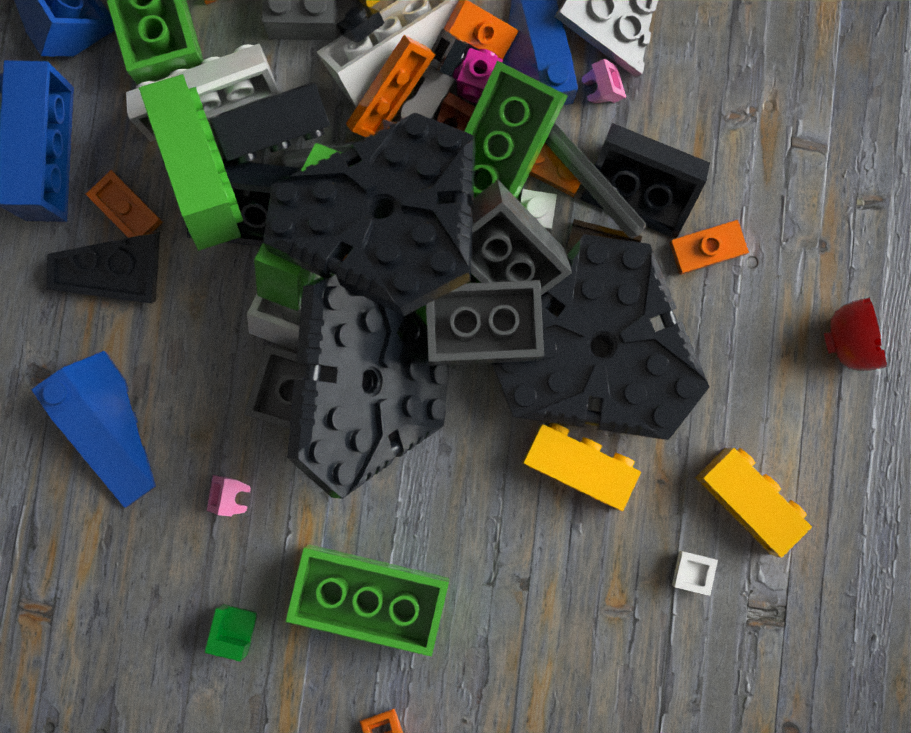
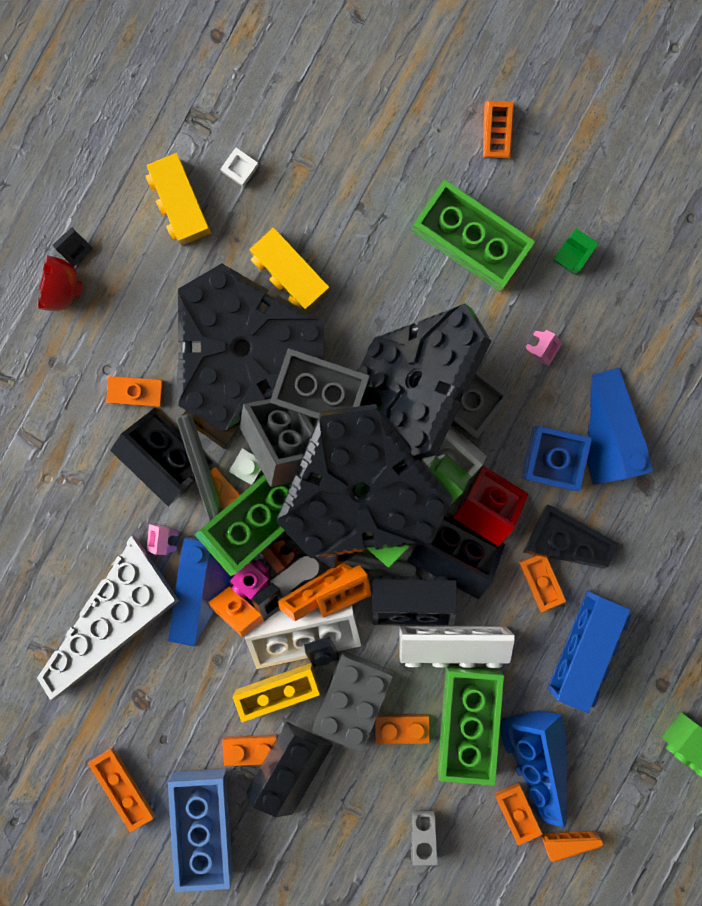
camera: 155 degrees left, 5 degrees up
(159, 360) = (556, 458): none -> blue brick
(192, 161) = (482, 586): bright green brick -> none
(219, 278) = (491, 506): none -> red slope
(358, 97) = (356, 588): none -> orange slope
(858, 392) = (72, 246): none -> black plate

